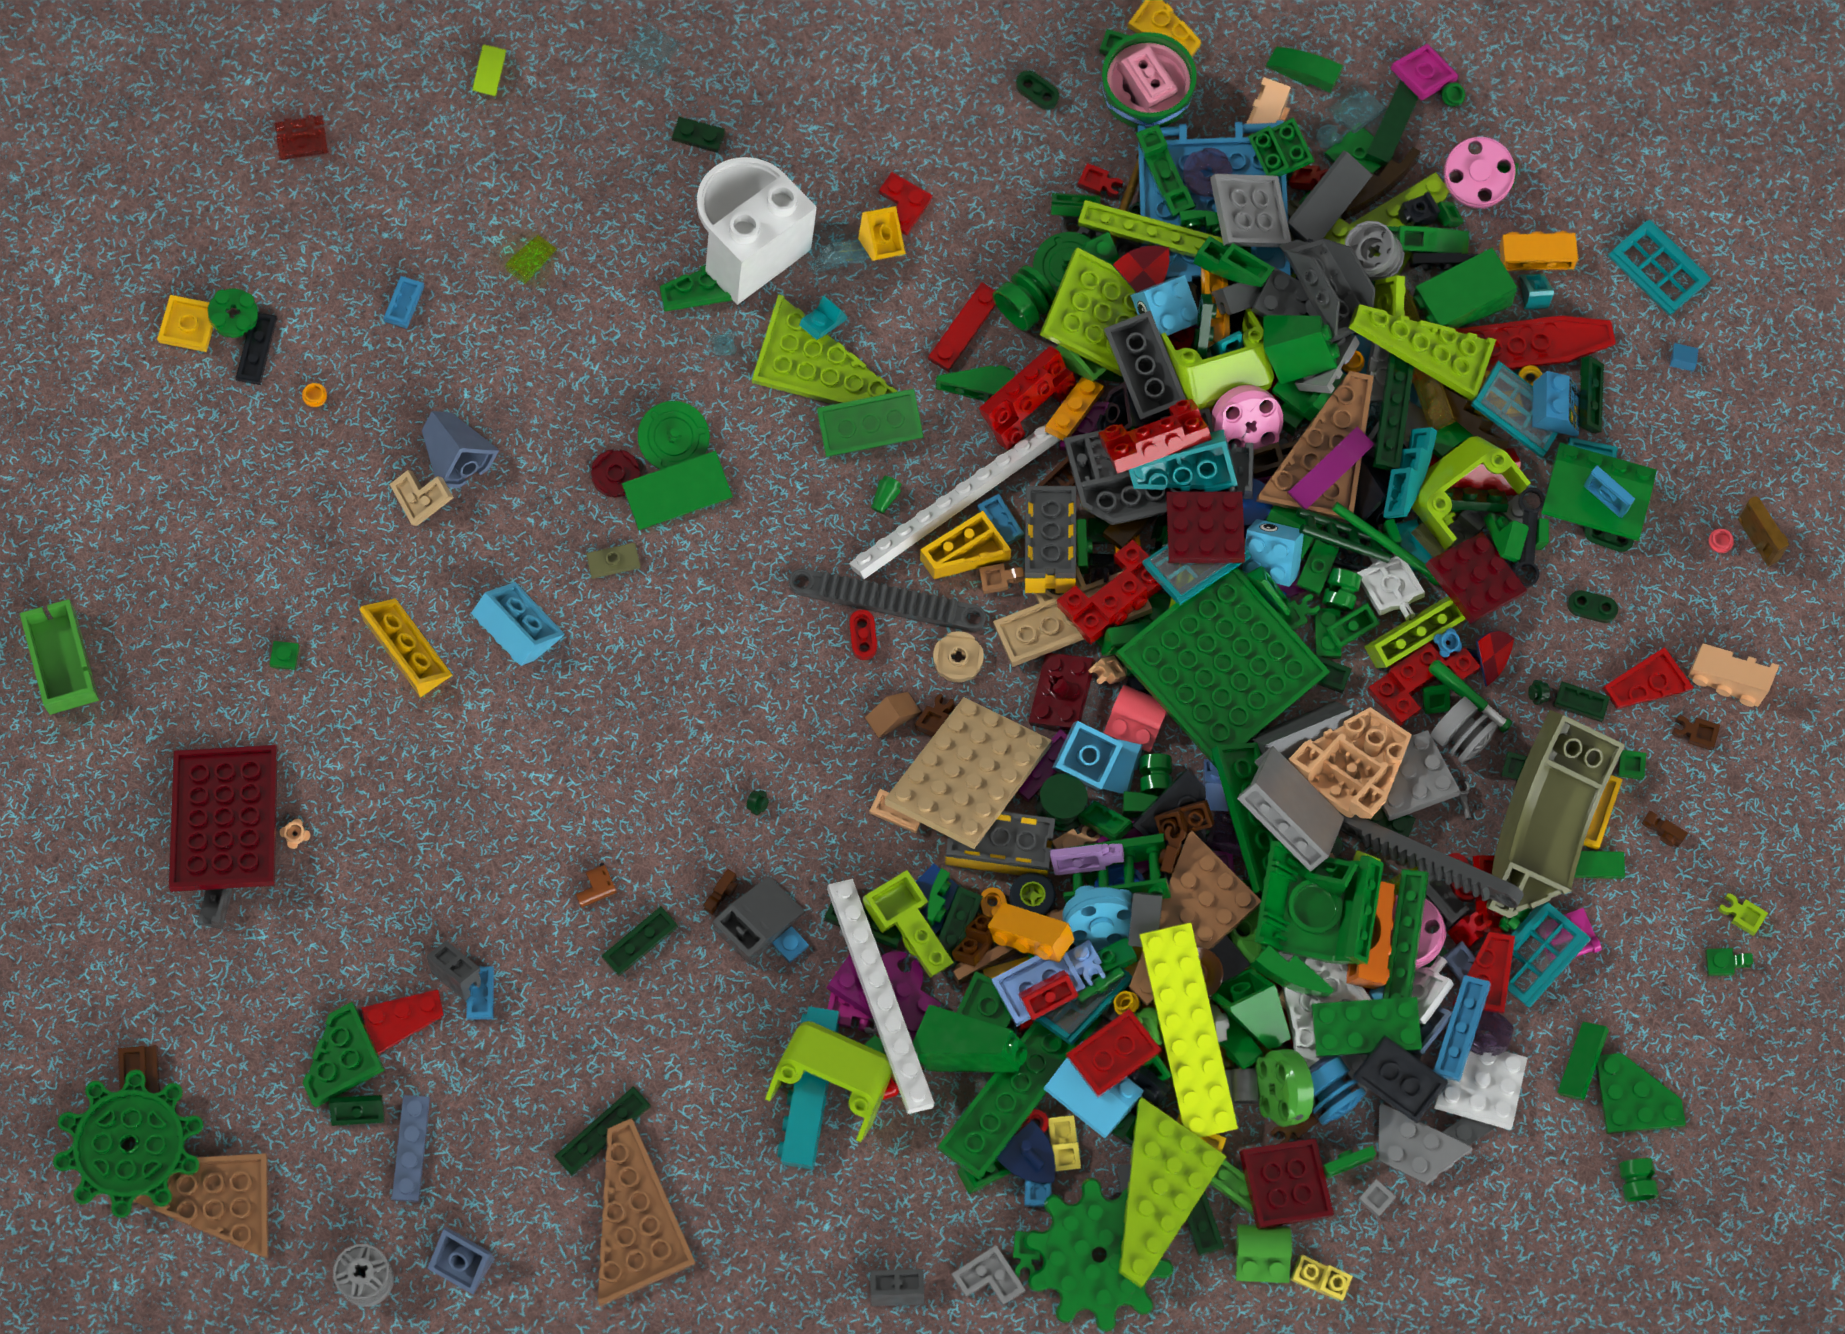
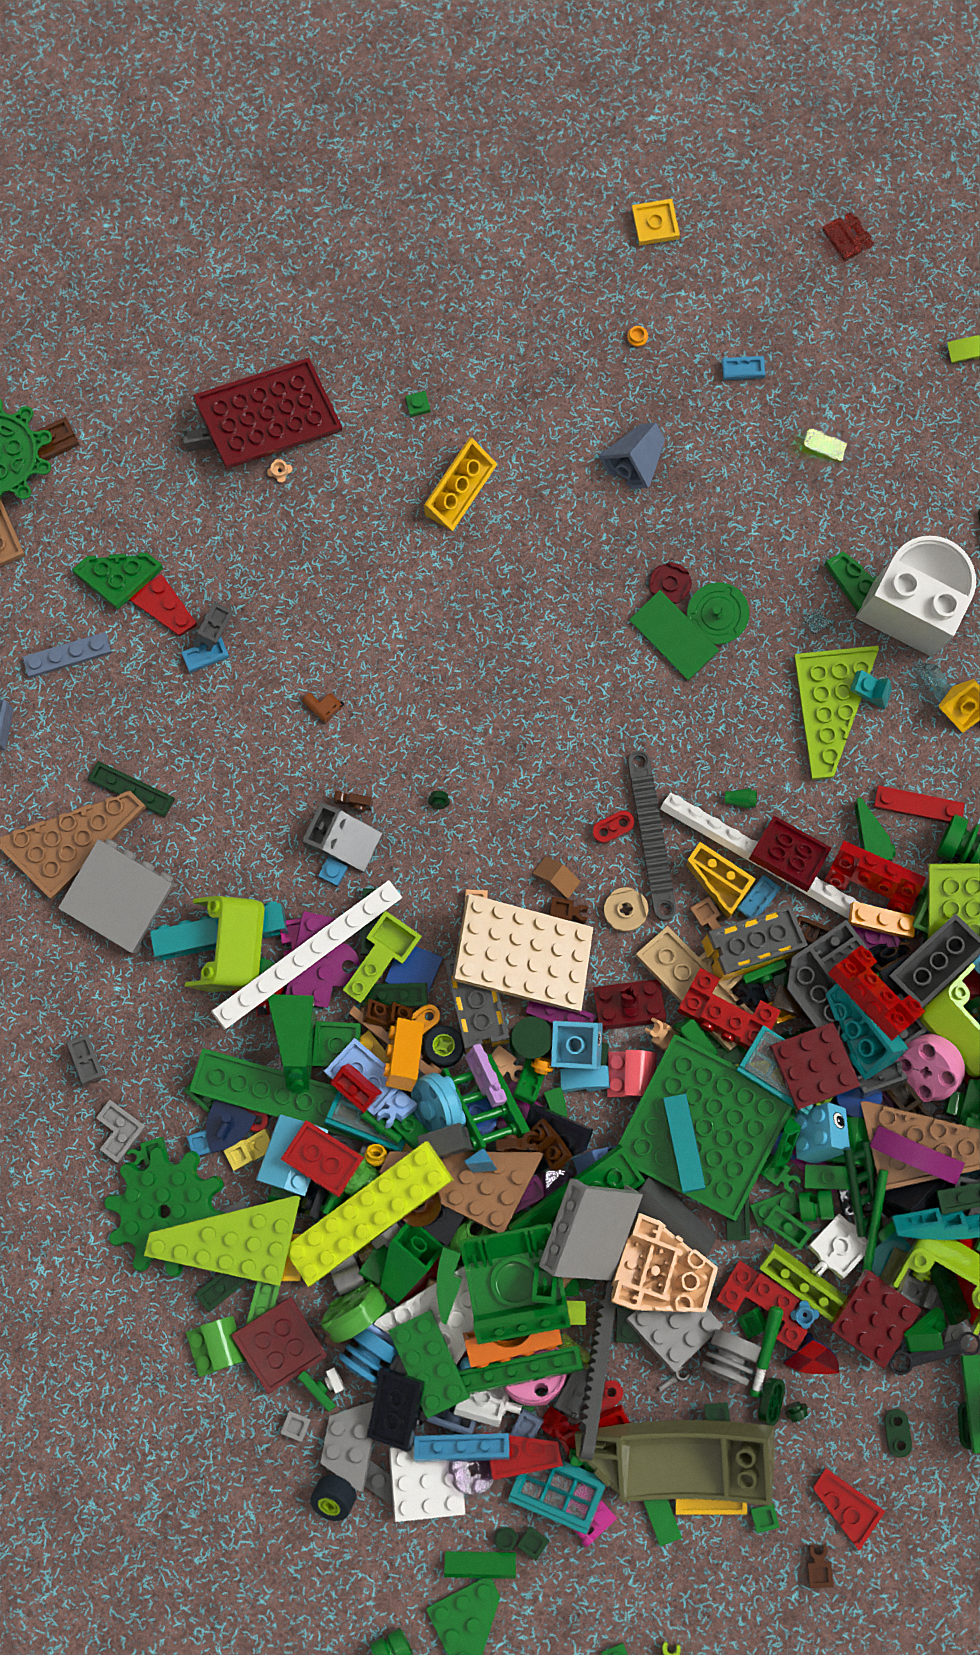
camera: 75 degrees right, 5 degrees up
(59, 657) = (347, 246): bright green piece -> none
(242, 322) = (676, 236): green plate -> none
(256, 350) = (658, 279): black tile -> none
(357, 1110) = (80, 603): dark green plate -> none
(417, 501) = (582, 447): tan plate -> none
(516, 623) = (512, 560): medium azure slope -> none
(613, 560) = (596, 611): olive plate -> none
(639, 941) = (290, 755): dark green plate -> none
(725, 1182) = (117, 894): none -> light grey panel
(870, 423) = (796, 761): green plate -> none
(936, 904) = (403, 971): green slope -> none
(968, 467) = (790, 853): none -> dark red plate
(1095, 800) = (542, 1065): none -> light orange plate
(1156, 773) = (587, 1108): green wheel -> none
(1179, 891) = (480, 1162): none -> dark azure slope
(1234, 685) = (684, 1143): none -> teal slope
(1321, 1278) = (213, 1402): light yellow slope -> none
(1344, 1140) = (334, 1380): none -> white plate
(1466, 1181) = (333, 1498): none -> black wheel
(1512, 707) = (771, 1401): none -> dark green plate
(1542, 537) = (944, 1364): green tile -> none
(1565, 1026) = (505, 1539): none -> dark green plate
(1579, 1000) = (533, 1543): none -> dark green plate
(1581, 701) = (804, 1453): dark green plate -> none
(1668, 832) = (714, 1573): reddish brown plate -> none
(1732, 675) = (883, 1582): light nougat wedge -> none

